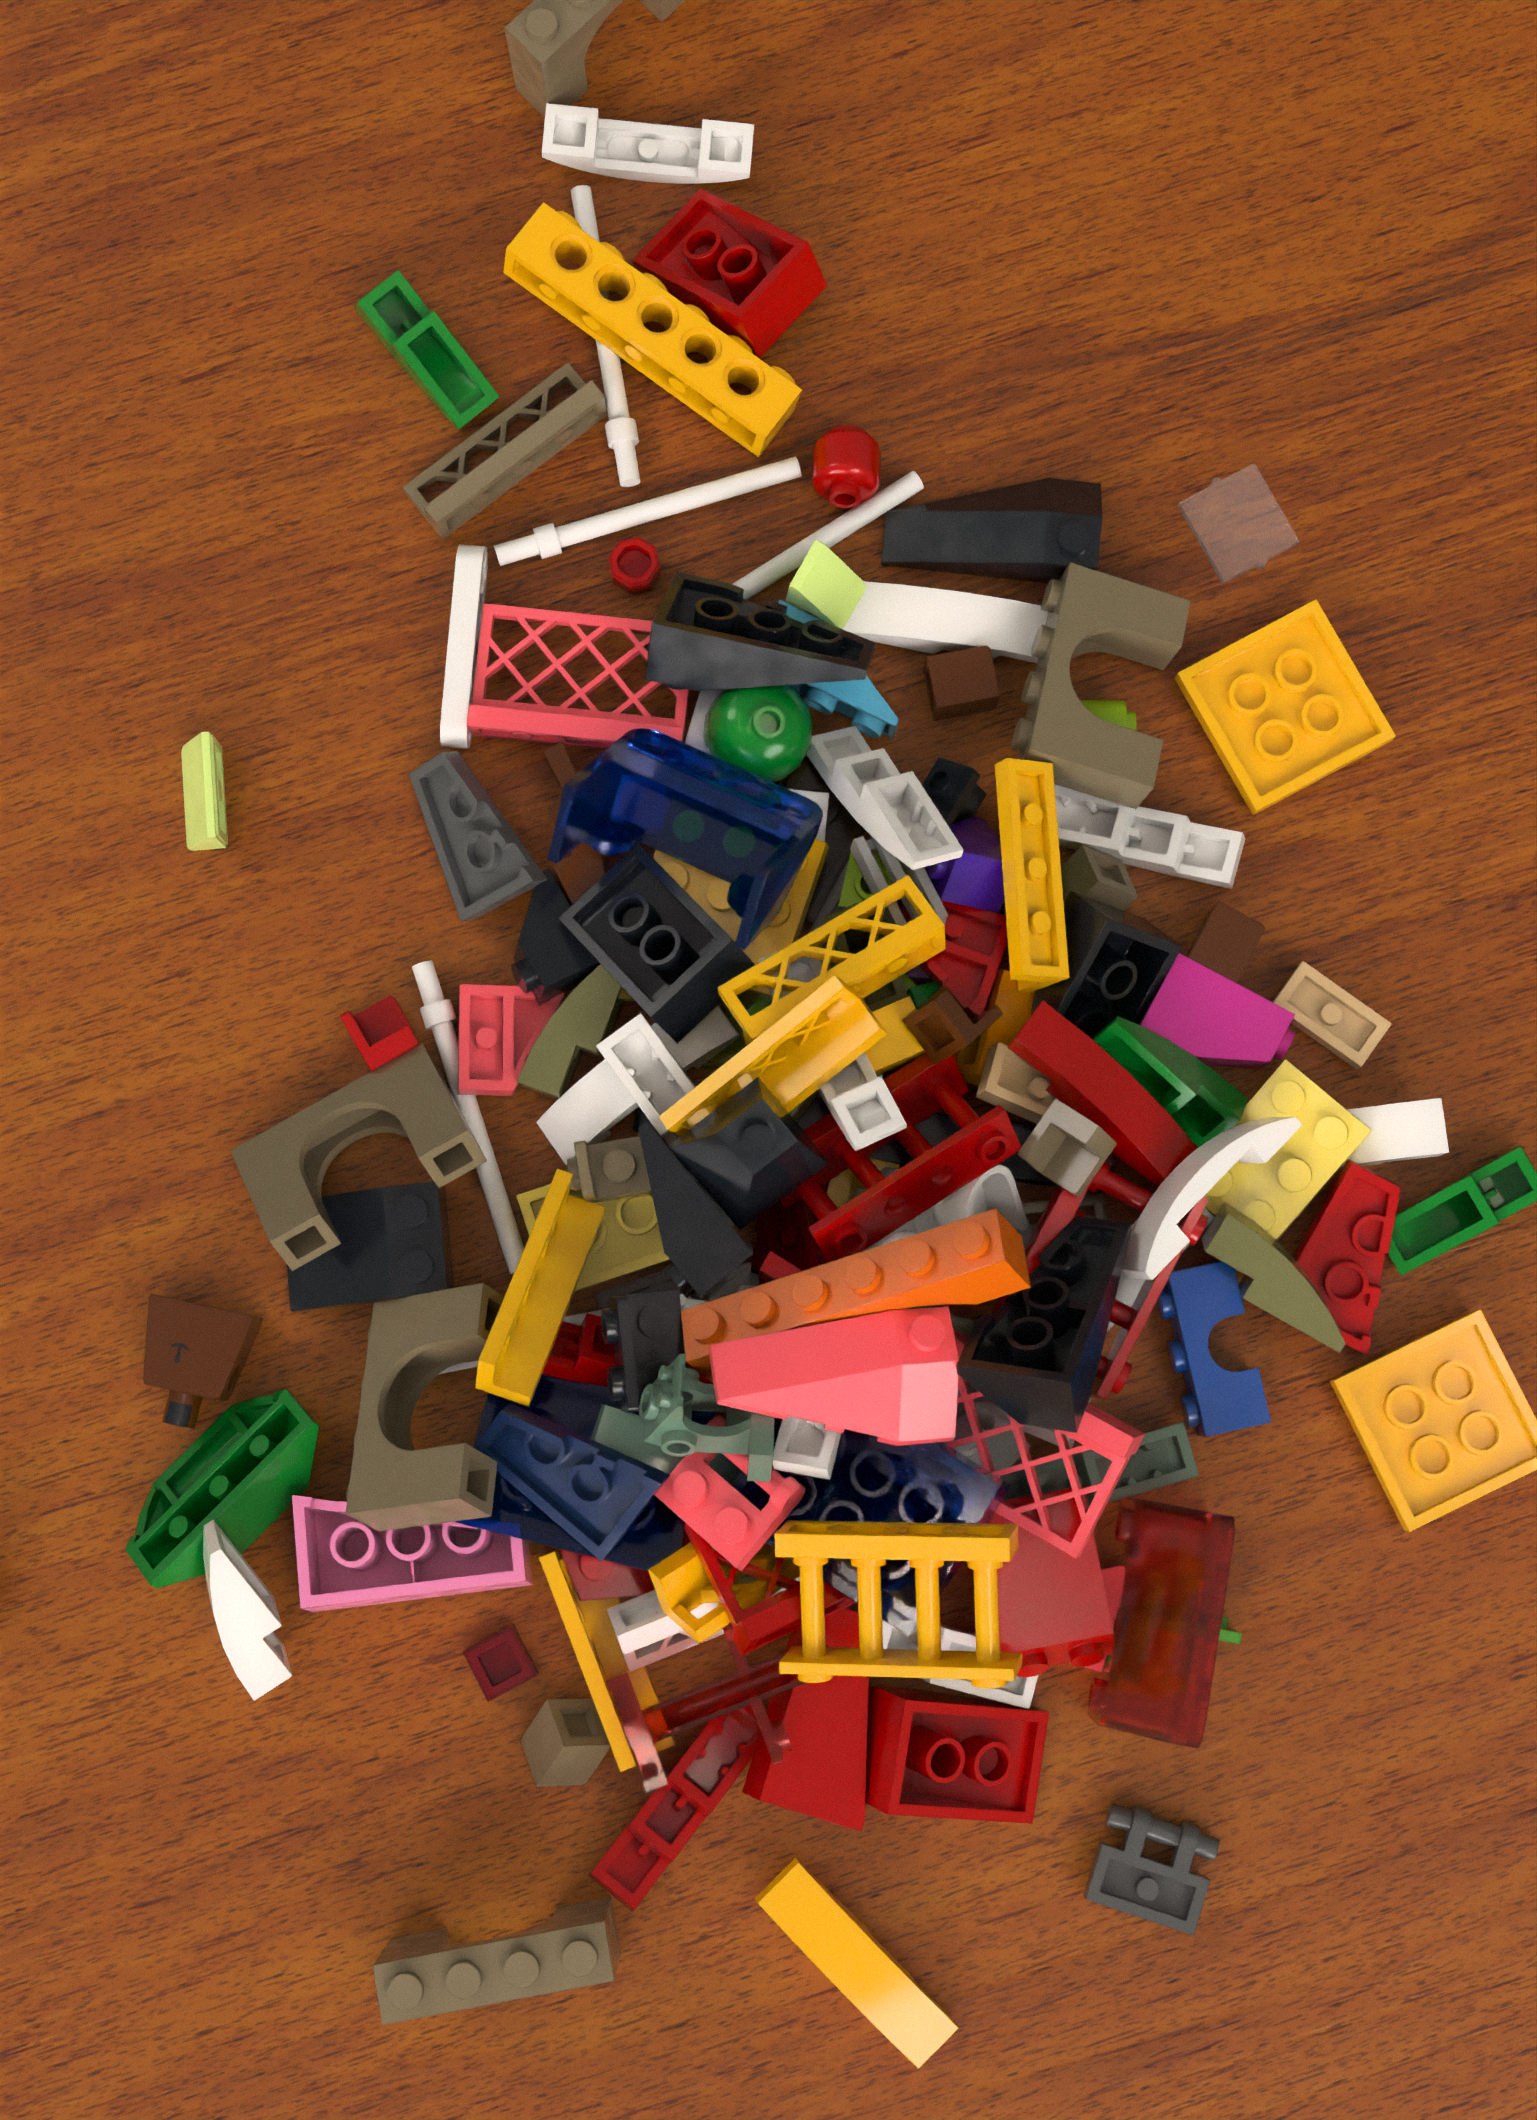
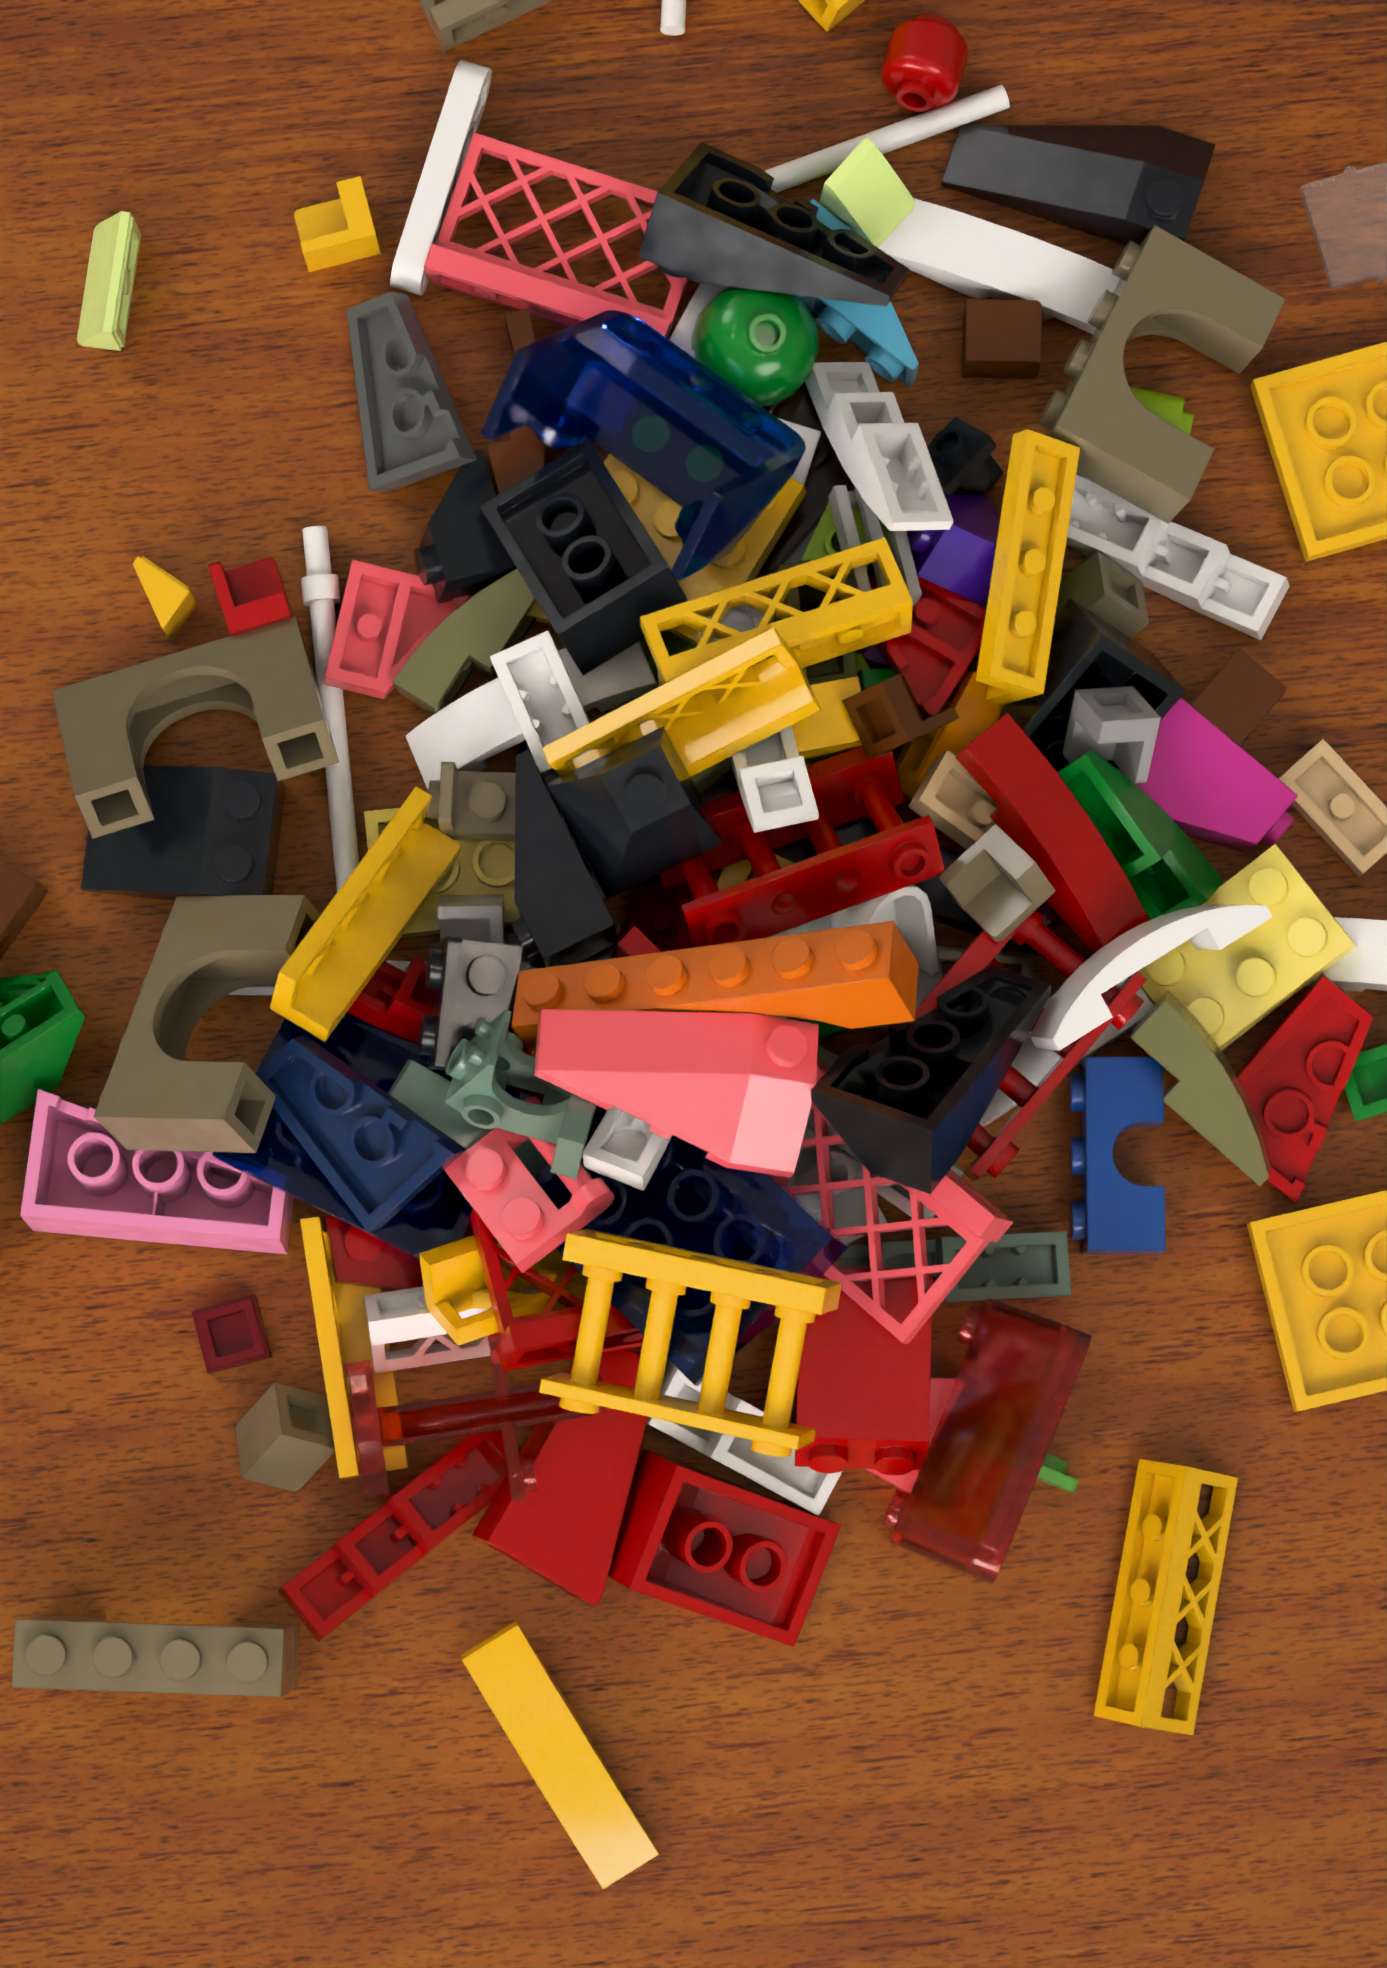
camera: 15 degrees right, 0 degrees up
(311, 1049) = (168, 596): none -> yellow slope
(386, 707) = (338, 228): none -> yellow panel
(549, 539) = (565, 77): white bar -> none
(628, 1270) = (472, 917): none -> light grey panel
(634, 565) = (656, 125): red tile -> none
(1131, 991) = (1114, 726): none -> light grey panel
(1143, 1884) = (909, 1744): dark grey plate -> none
(1327, 1714) = (1156, 1595): none -> yellow fence

